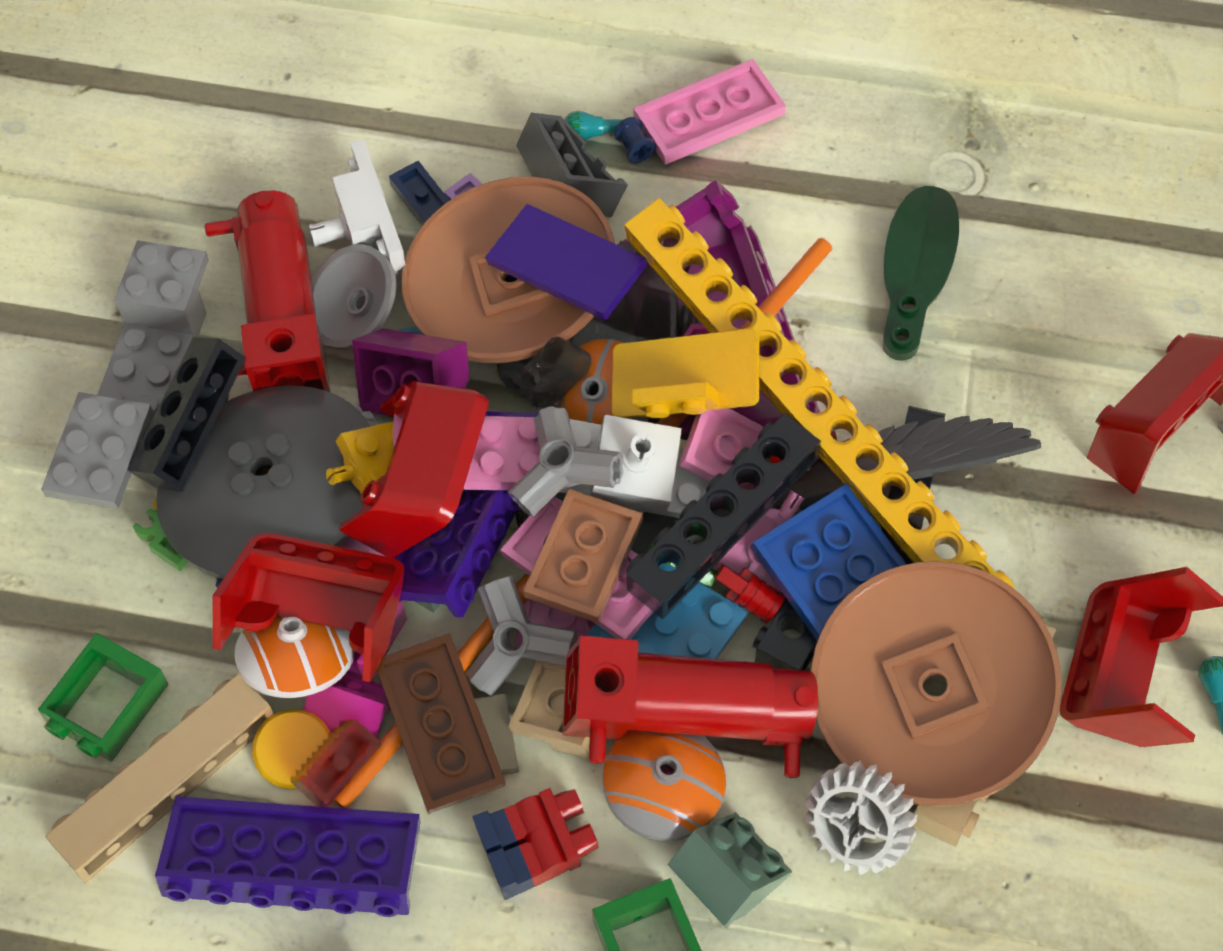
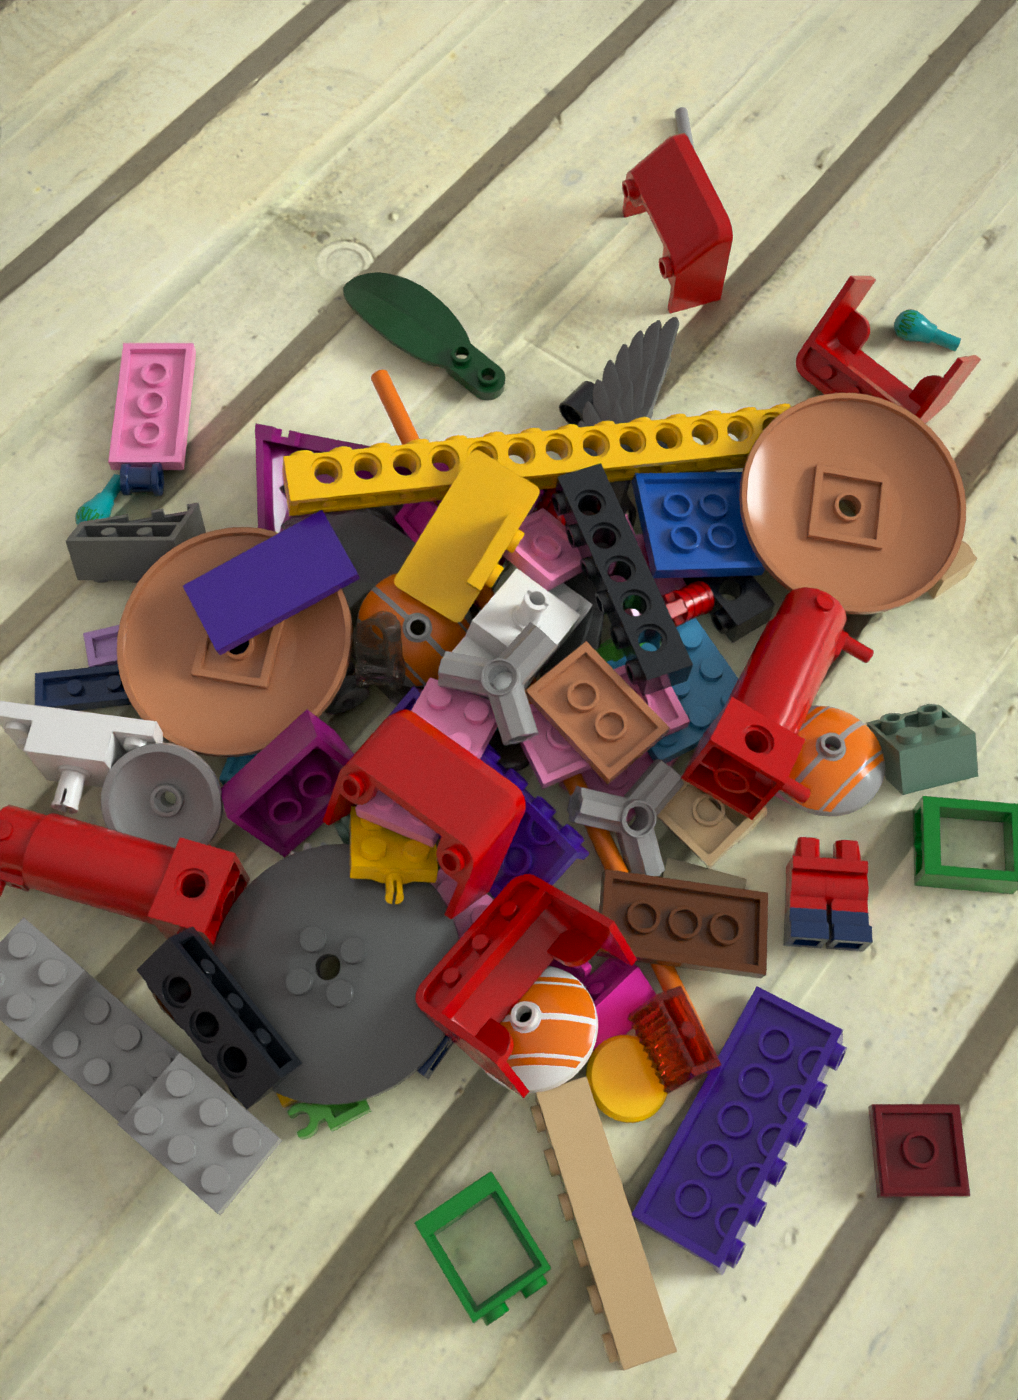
camera: 65 degrees left, 5 degrees up
(880, 812) = (935, 621): white gear -> none

